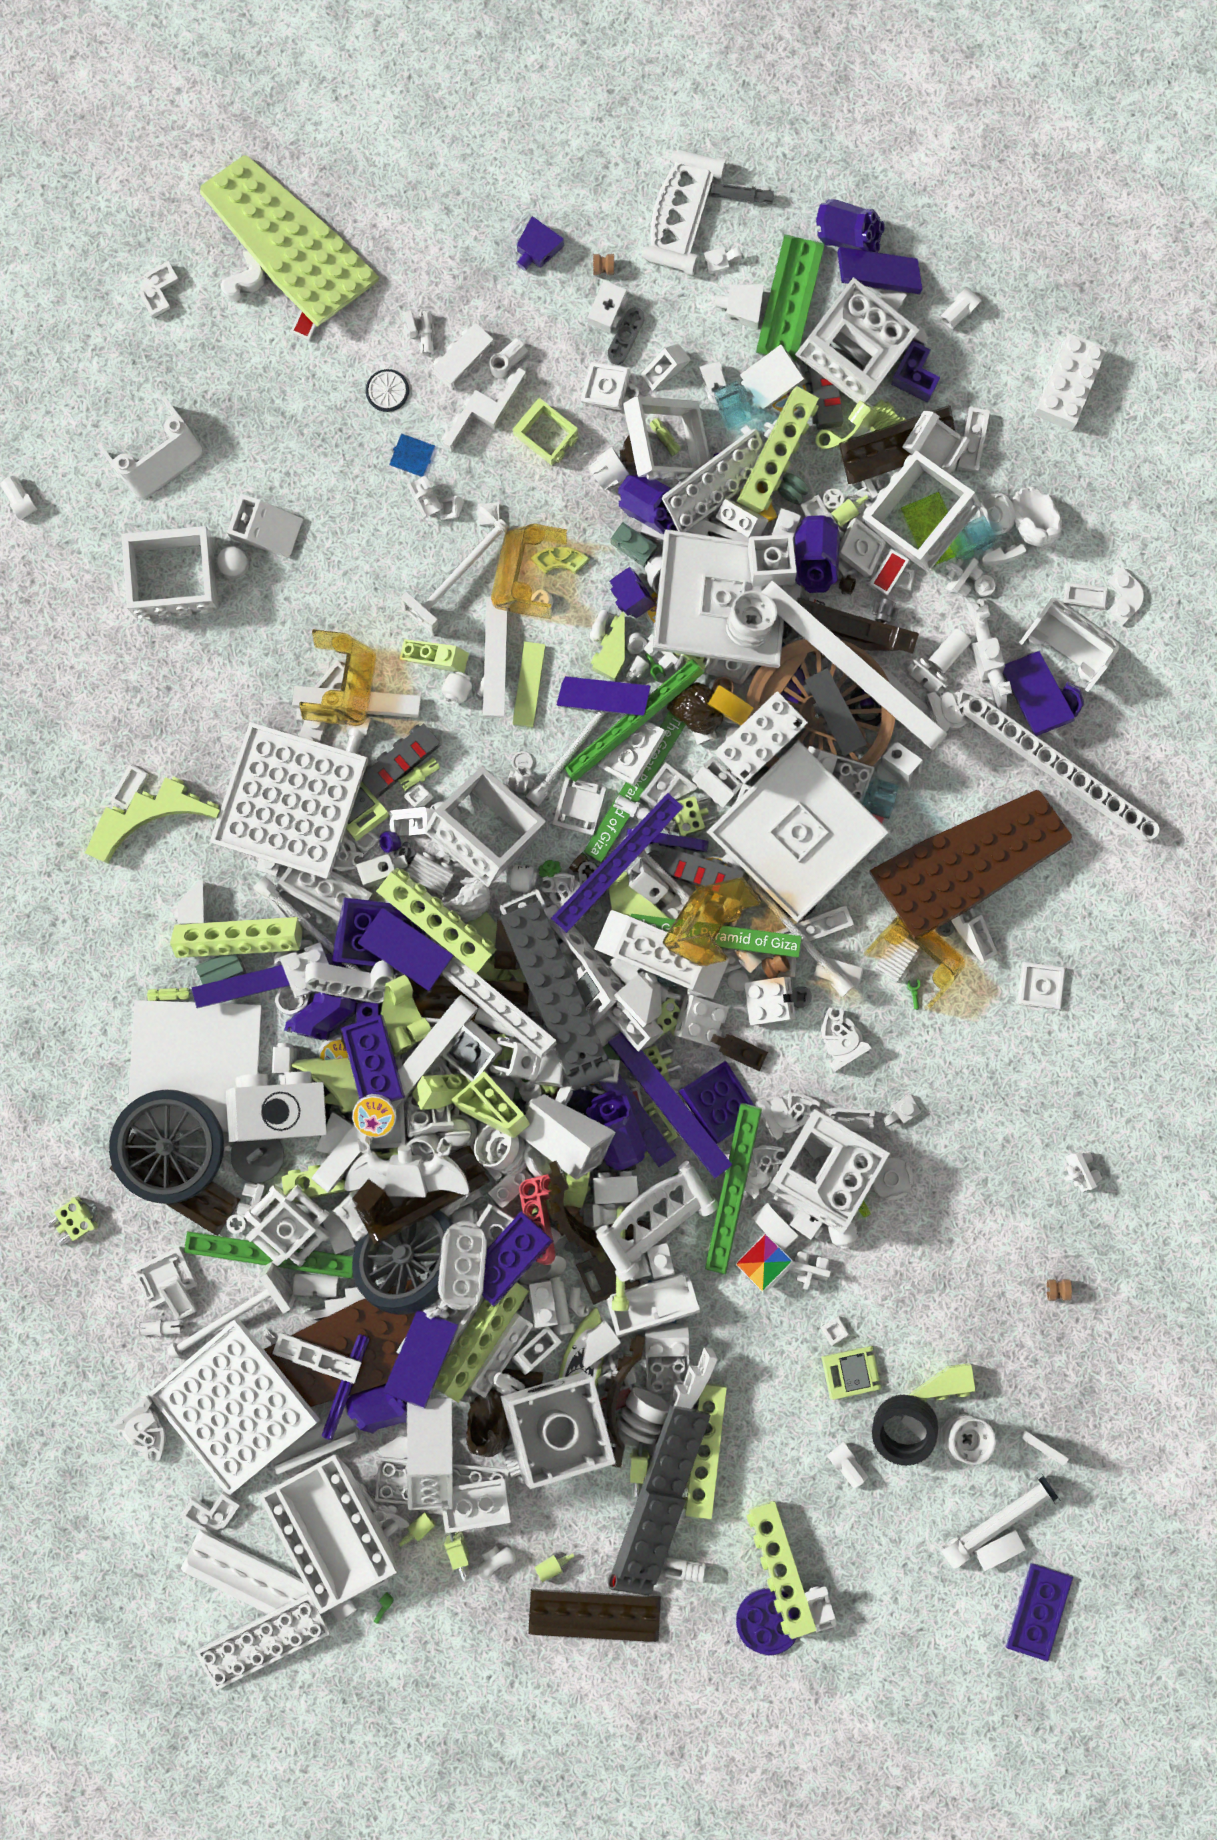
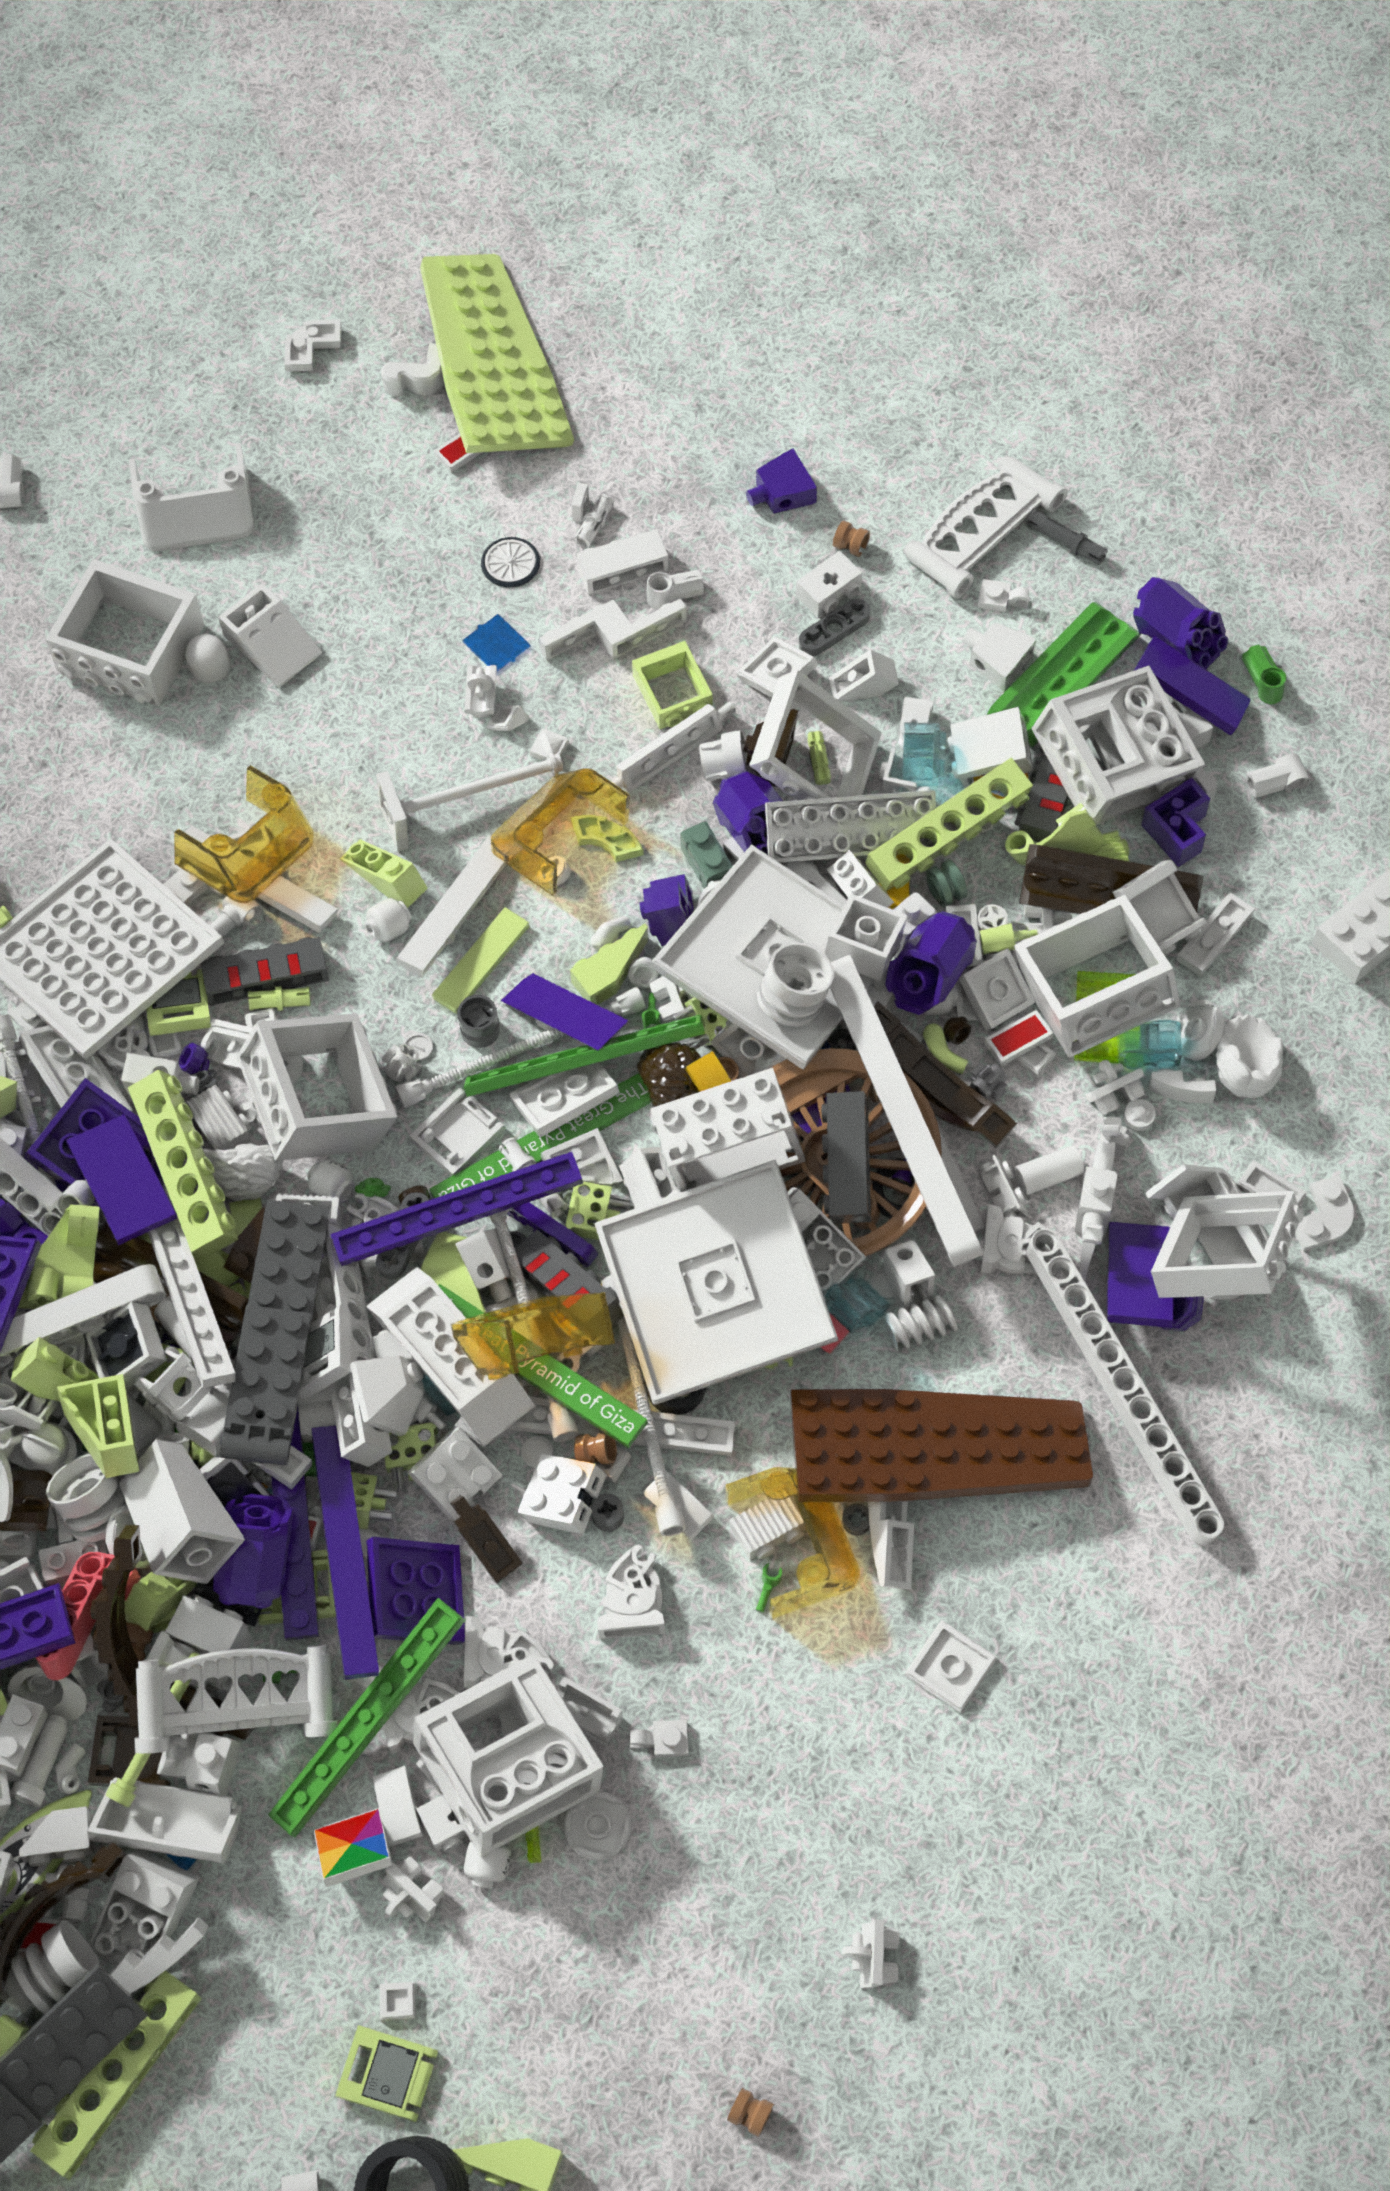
camera: 25 degrees right, 20 degrees down
(553, 728) = (478, 1021): none -> dark grey wheel
(570, 471) = (671, 746): none -> white plate
(714, 428) = (888, 782): none -> white bracket
(844, 604) = (937, 1045): none -> yellowish green arm
(917, 234) = (1265, 673): none -> bright green piece
(921, 788) = (920, 1321): none -> white piece
(1076, 626) = (1177, 1280): none -> white window

